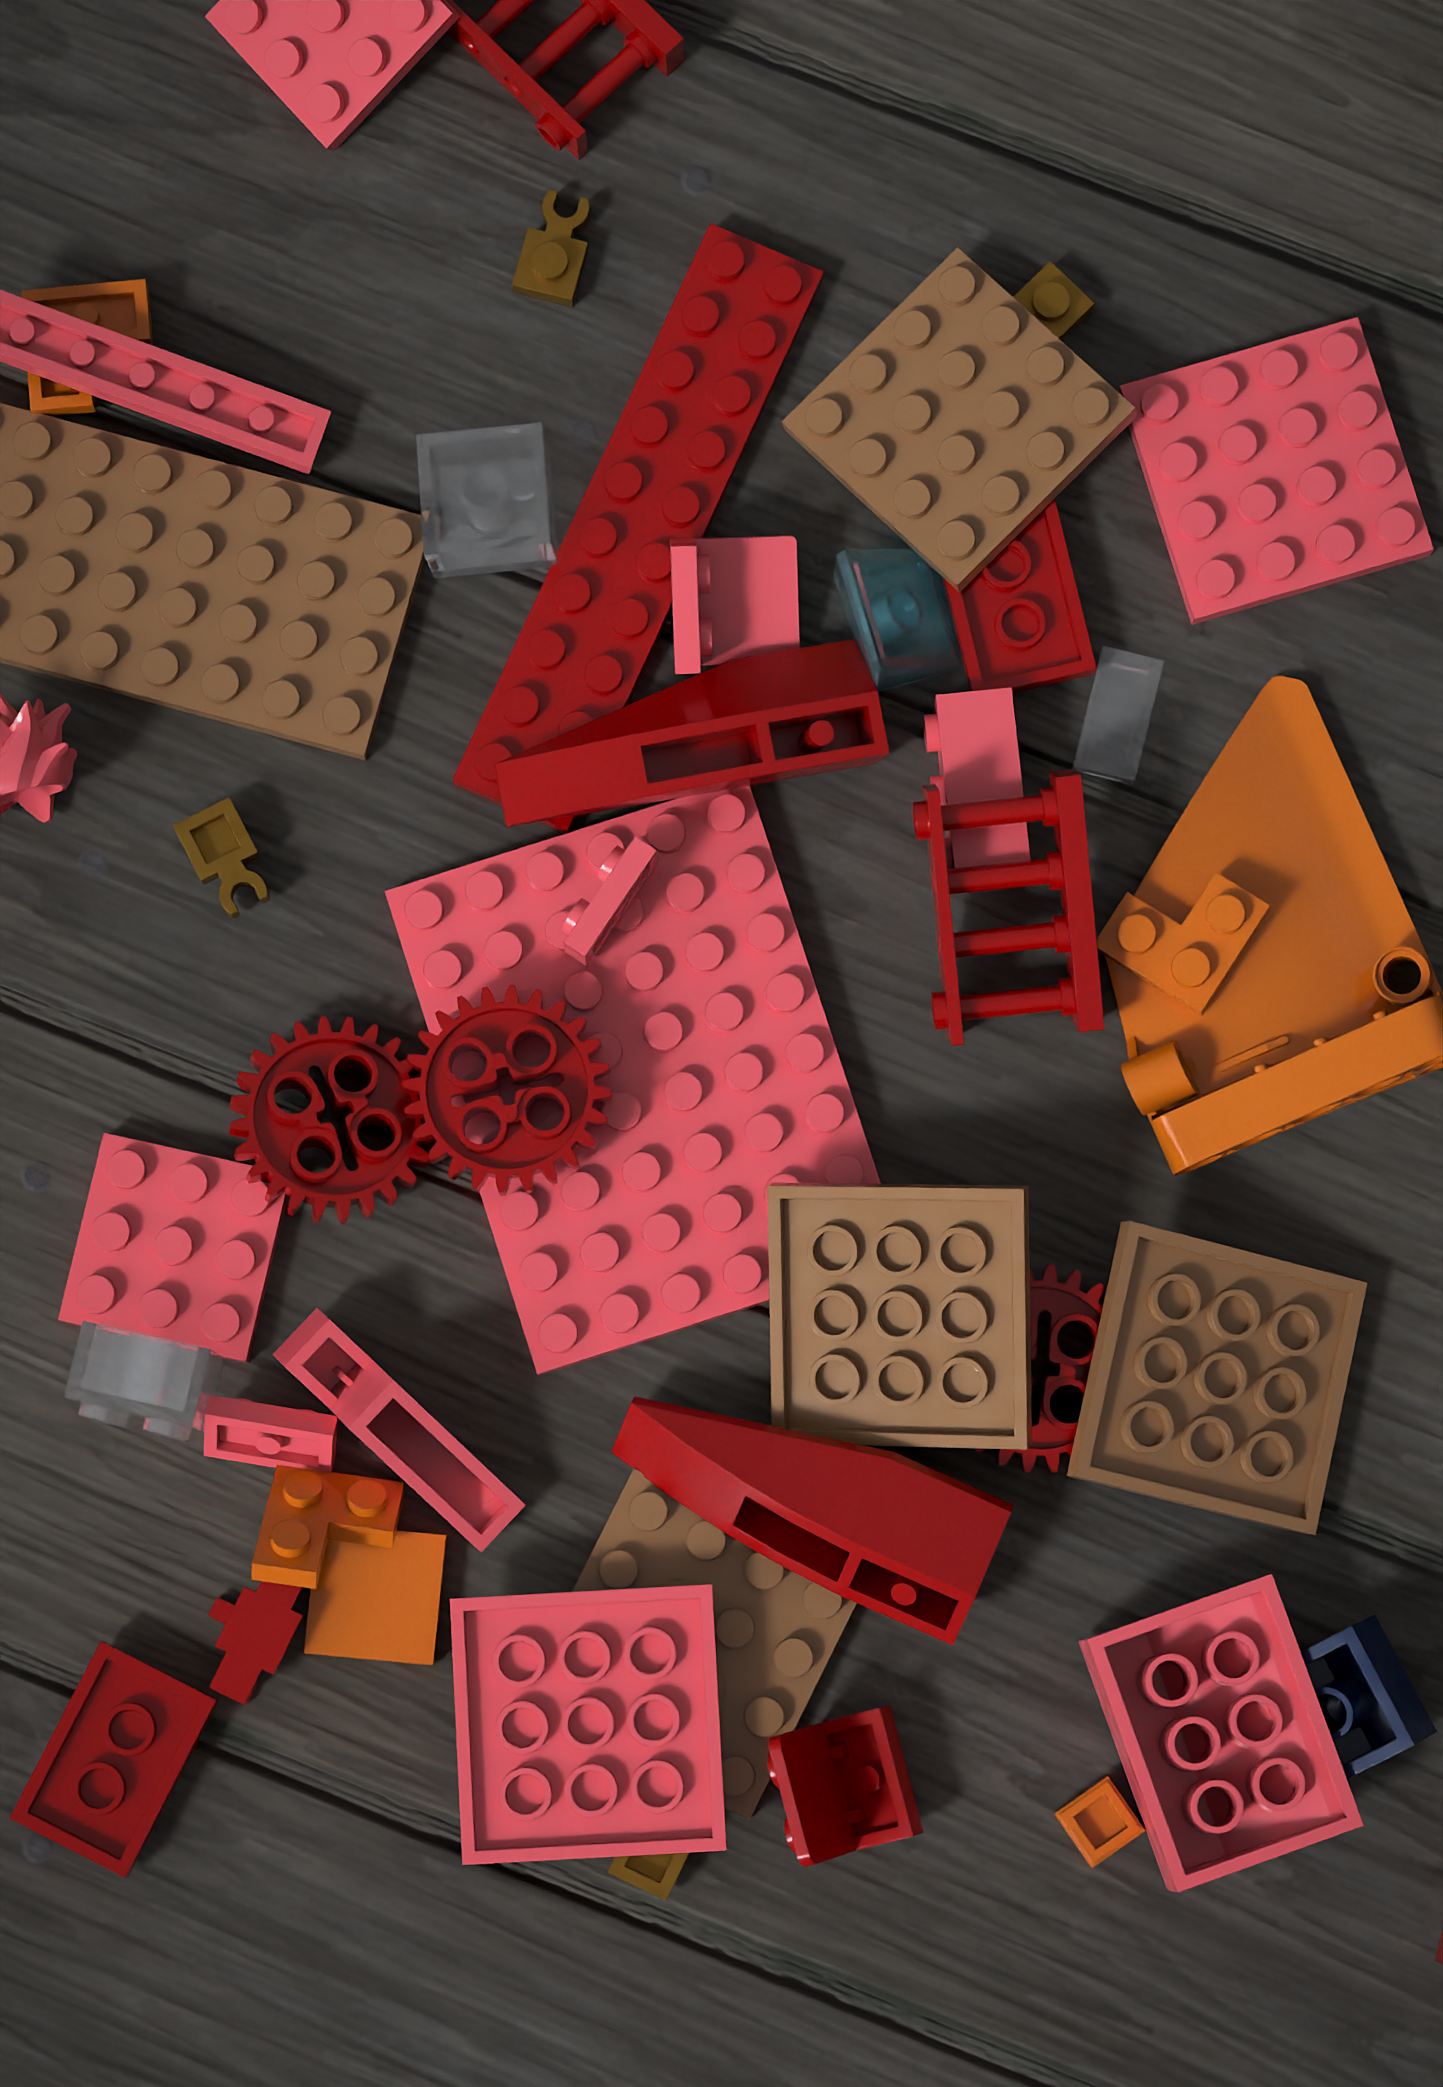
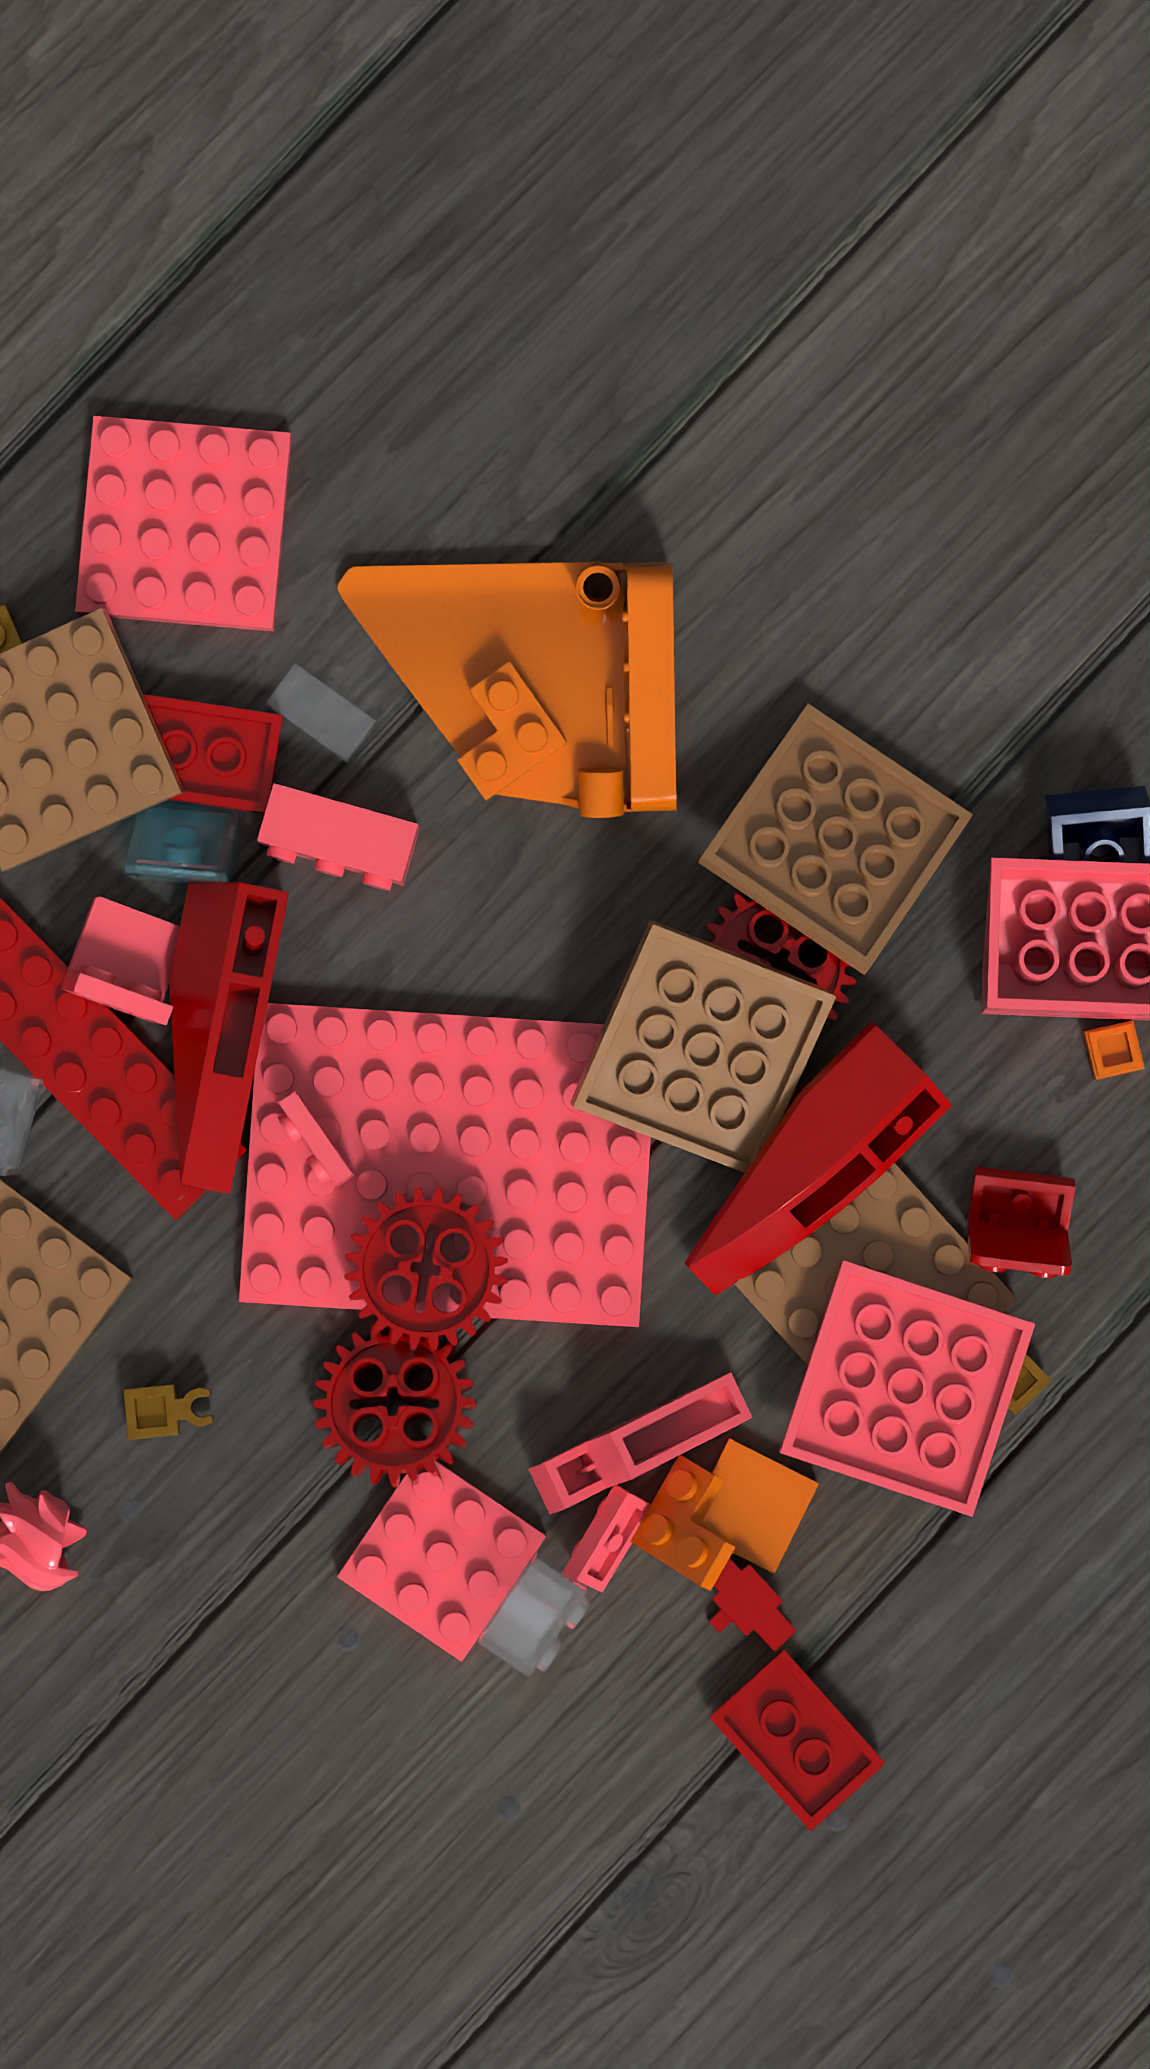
camera: 70 degrees left, 5 degrees up
(1068, 933) = (471, 814): red fence -> none

